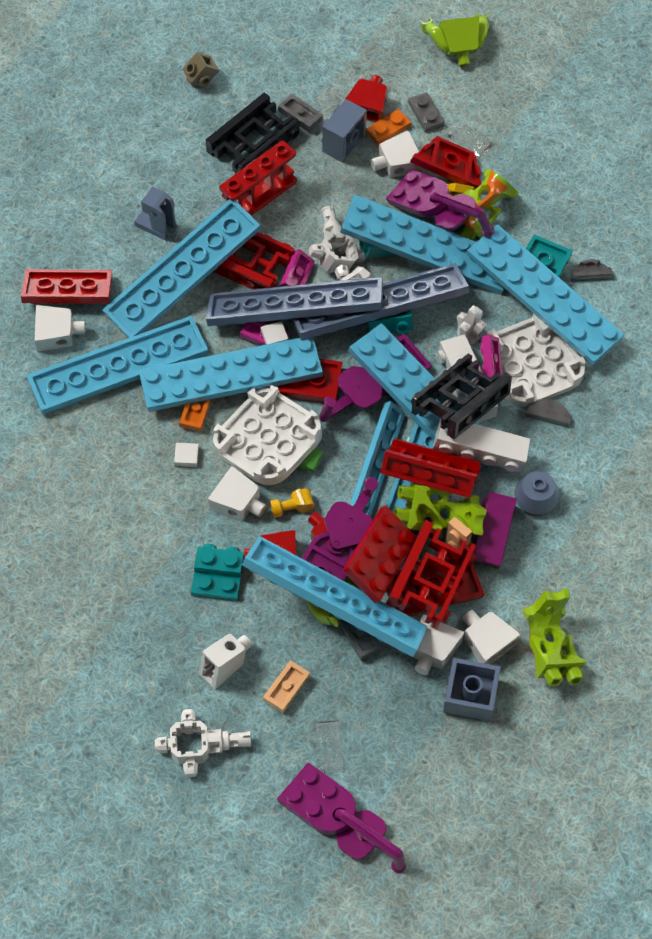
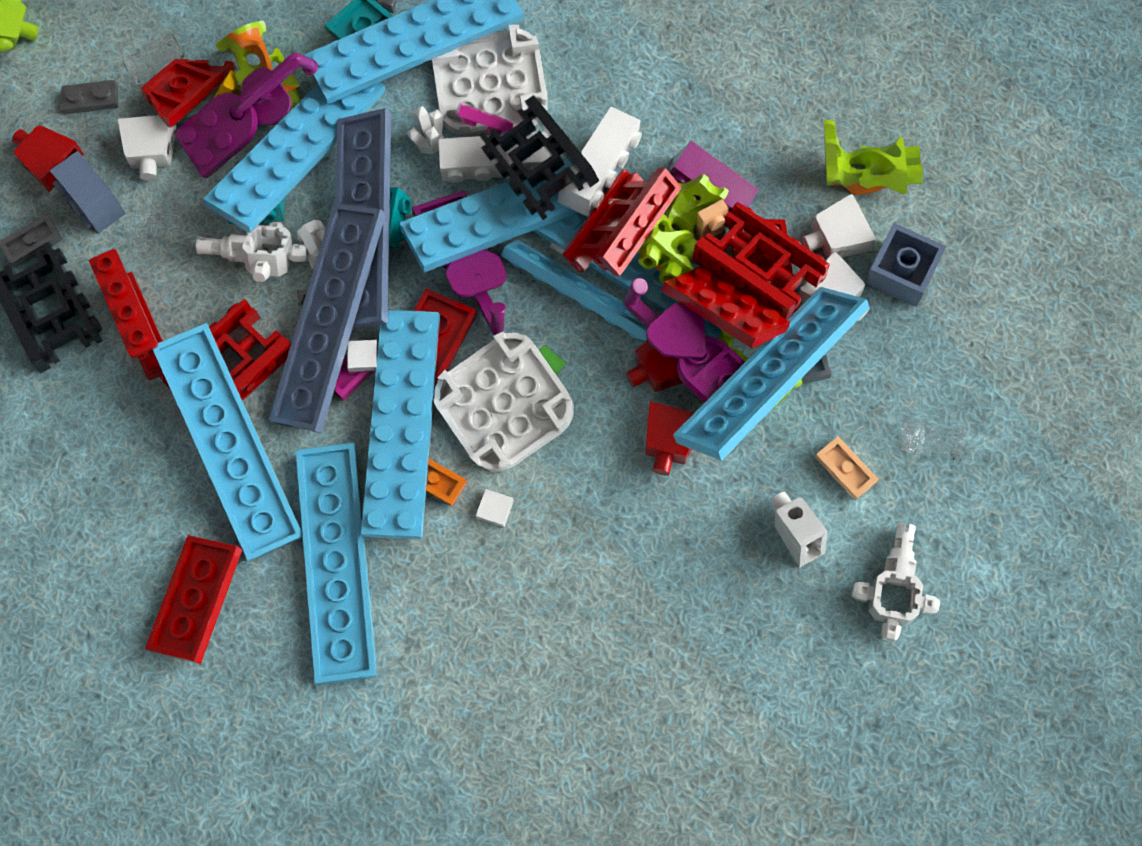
camera: 70 degrees left, 10 degrees up
(55, 328) = (252, 628): white torso -> none
(156, 213) = (130, 455): sand blue piece -> none
(217, 572) = (673, 510): teal plate -> none
(236, 496) = (576, 460): white torso -> none
(298, 269) = (274, 306): dark pink plate -> none
(300, 500) = (603, 389): yellow leg -> none
(319, 799) = (1018, 456): magenta plate -> none
(388, 127) = (95, 144): orange plate -> none
(537, 493) = (670, 127): sand blue cone -> none
(549, 411) = (564, 84): flat silver tile -> none

